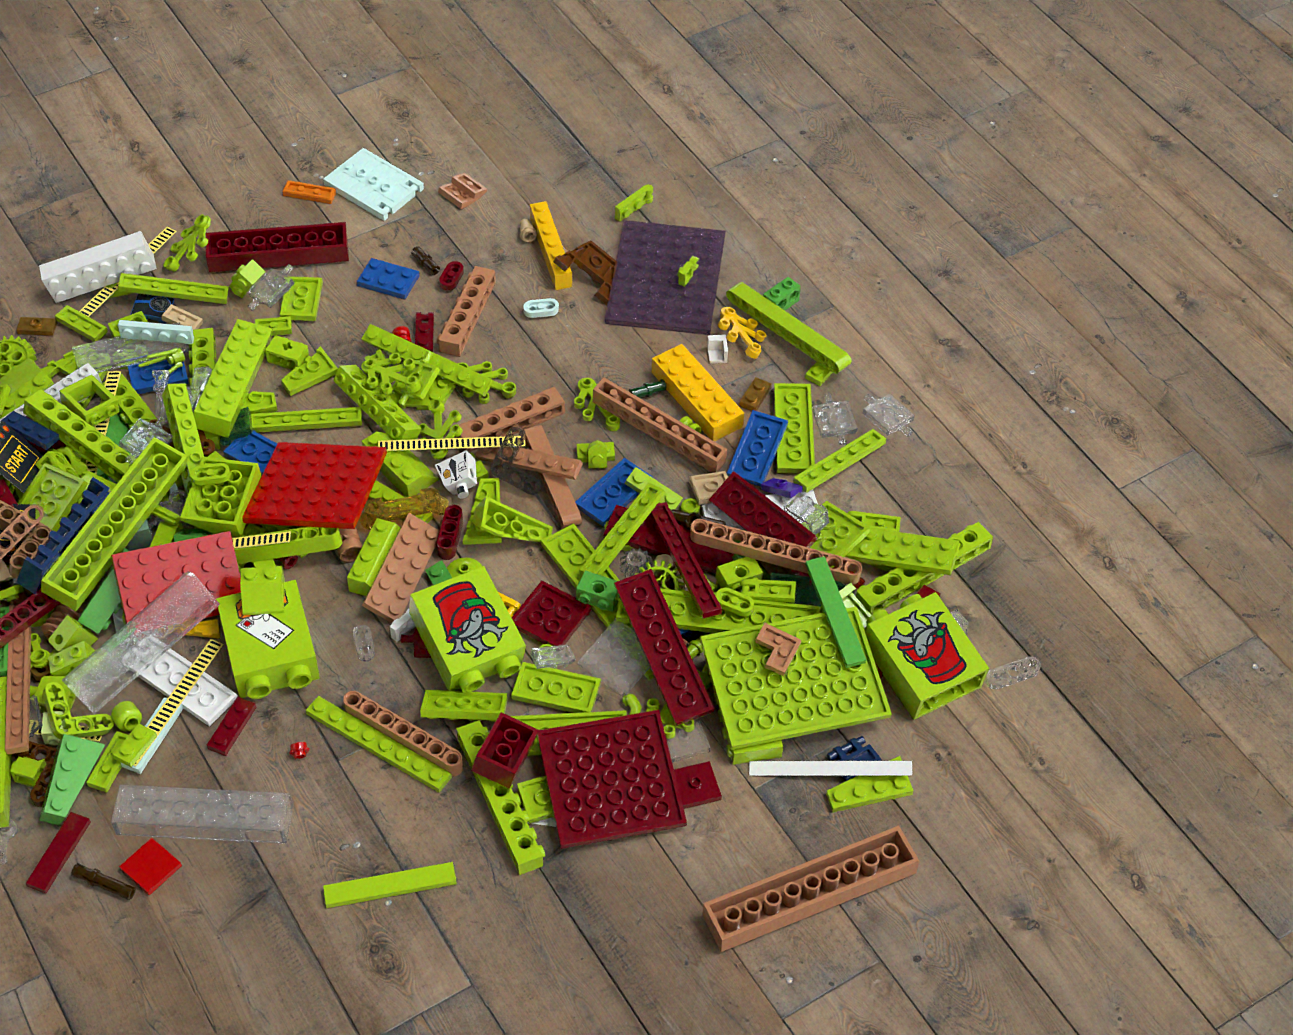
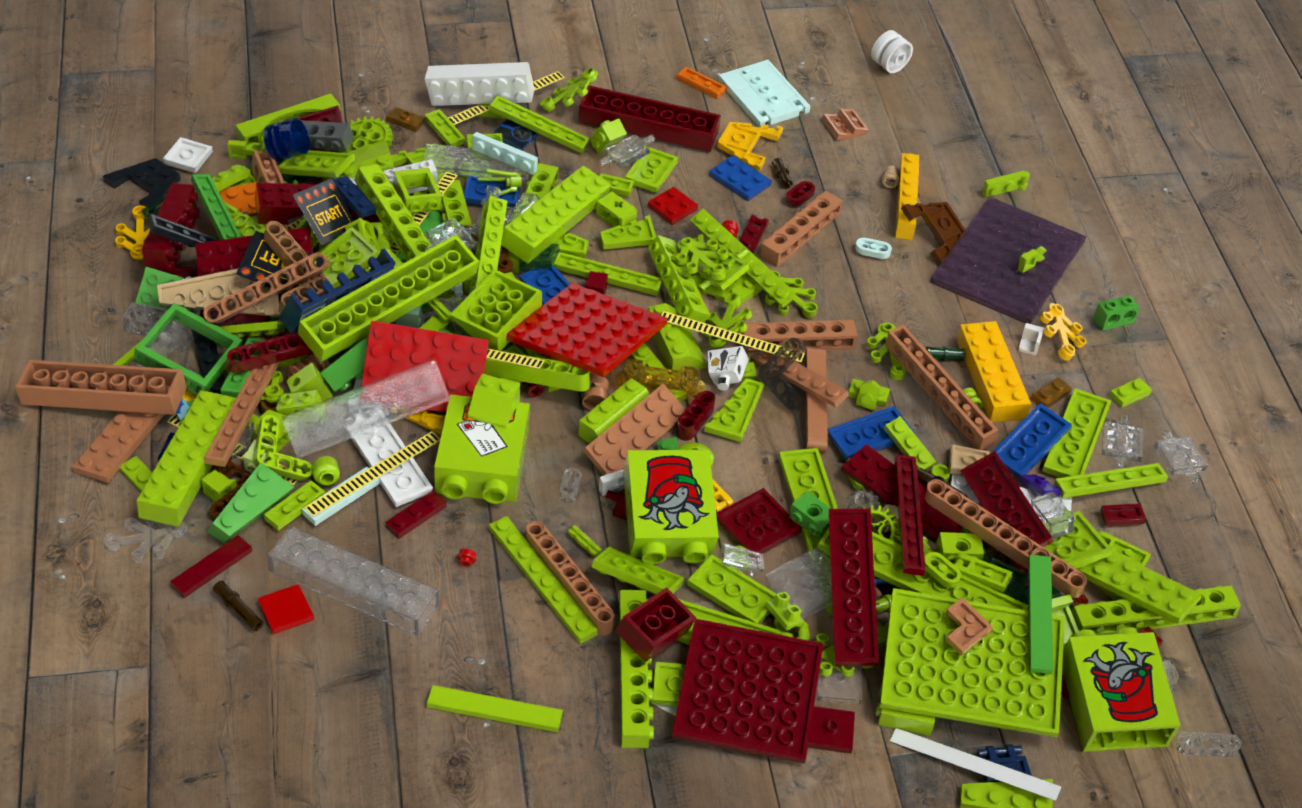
camera: 20 degrees right, 5 degrees down
(134, 745) = (320, 497): lime plate -> none
(176, 315) = (532, 147): tan plate -> none
(210, 474) = (494, 285): lime plate -> none
(301, 432) = (597, 281): none -> dark red brick
(337, 328) = (672, 205): none -> red plate
(372, 239) = (741, 138): none -> yellow wing
(400, 692) = (584, 541): none -> lime axle
(477, 103) = (891, 51): none -> white wheel
(508, 522) = (754, 424): lime wedge -> none
(612, 694) = (785, 614): none -> lime hips
(623, 529) = (862, 467): lime plate -> none
(788, 327) = (1112, 343): lime beam -> none
(862, 488) = (1123, 514): none -> dark red plate

